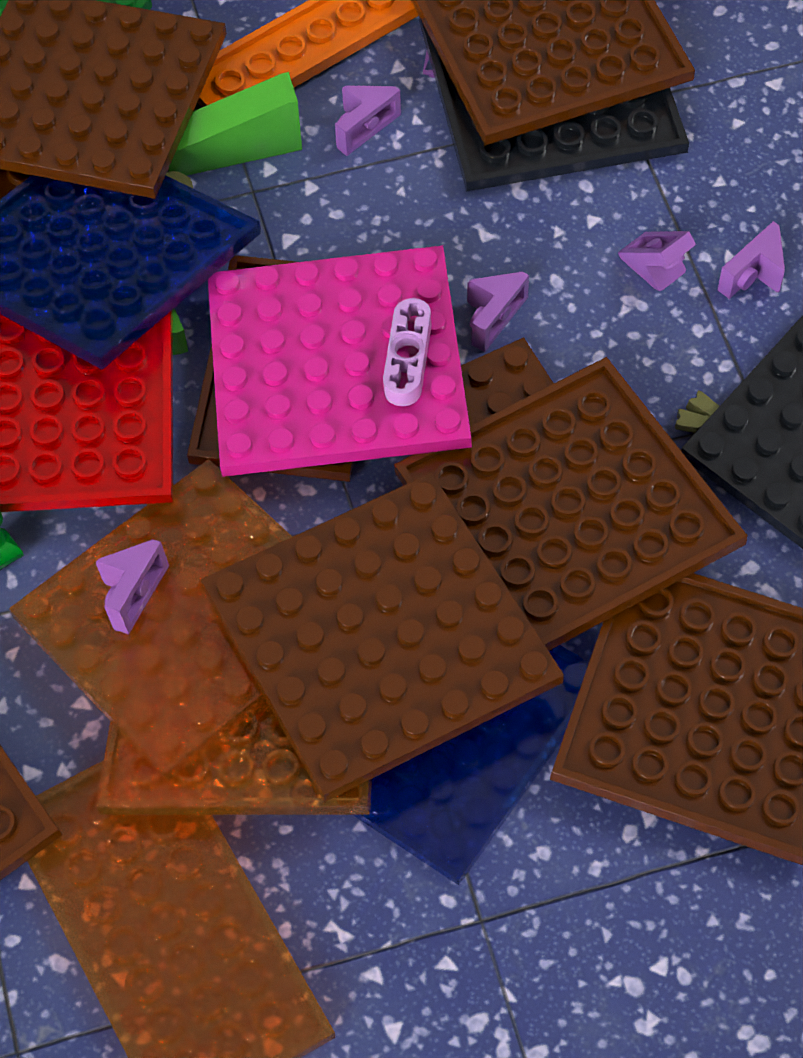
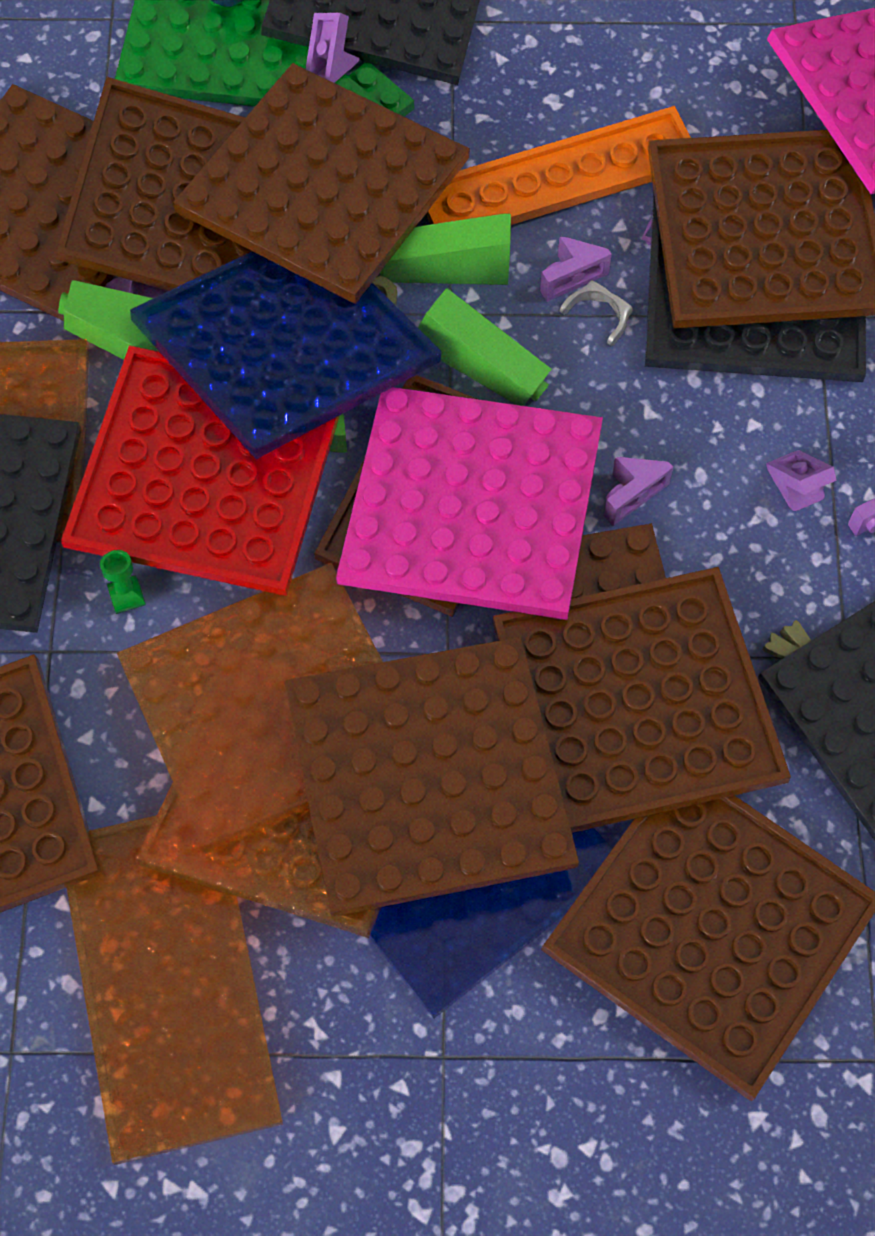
camera: 15 degrees right, 5 degrees up
(132, 579) = (231, 660): medium lavender slope -> none
(300, 214) = (483, 350): none -> bright green slope
(398, 133) = (596, 292): none -> light grey cap
(413, 366) = (536, 531): lavender beam -> none

